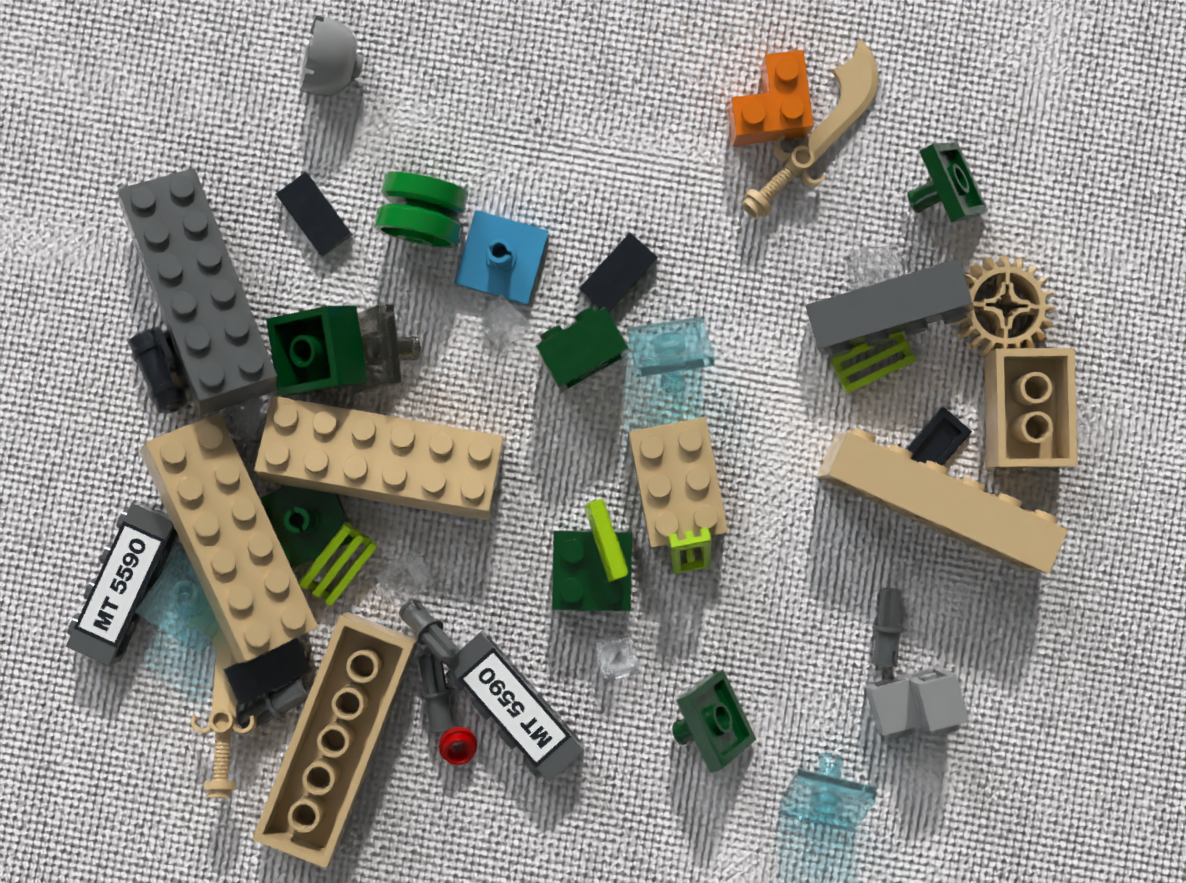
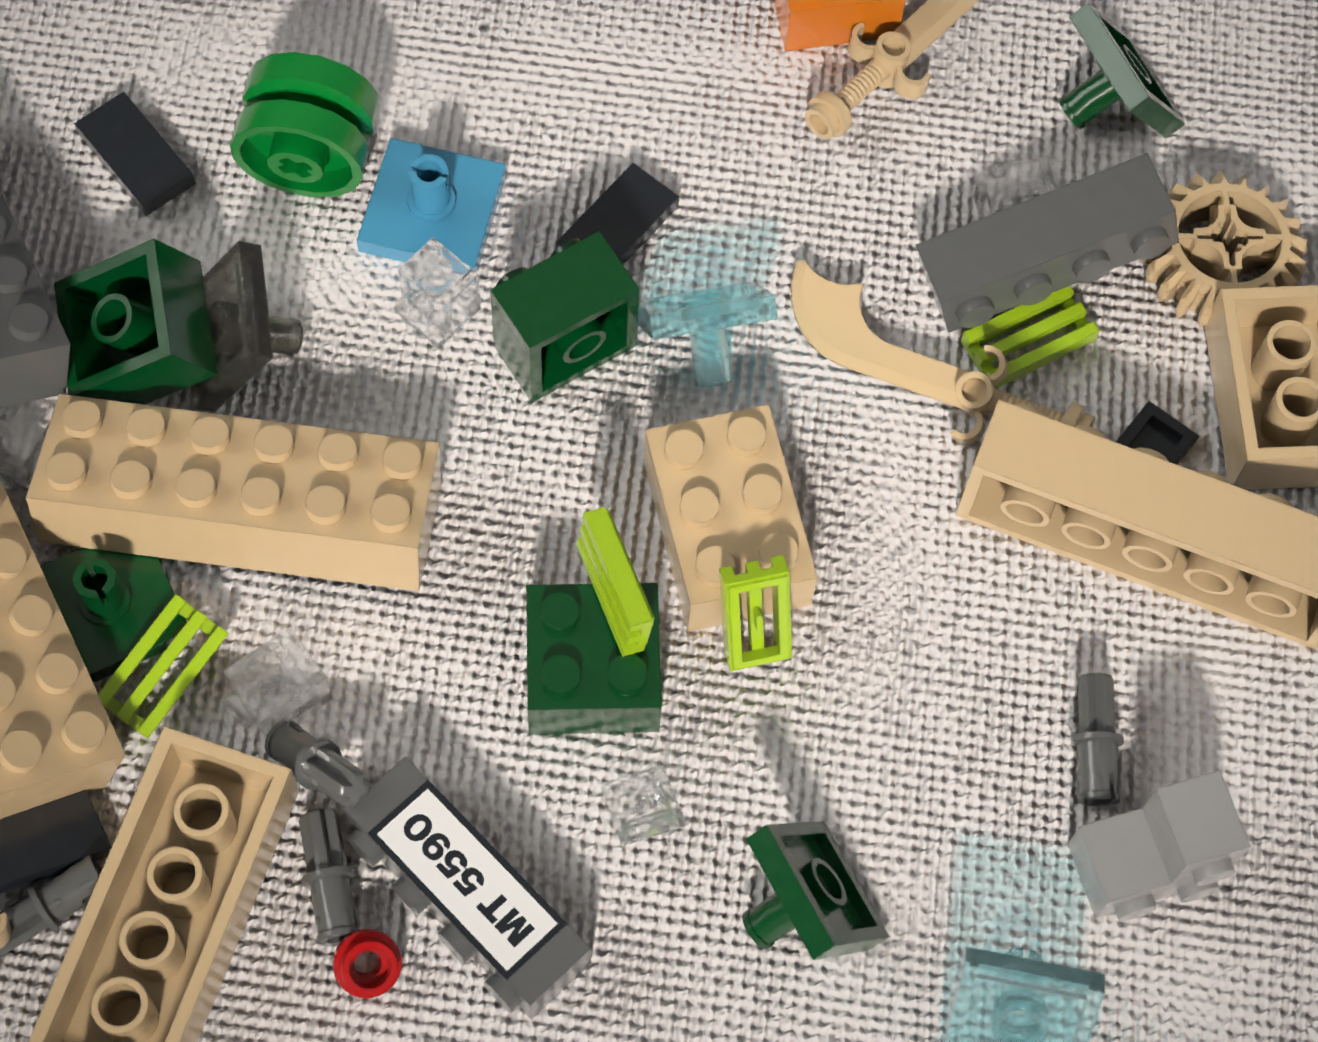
camera: 10 degrees left, 20 degrees down
(753, 352) = (835, 327): none -> tan sword

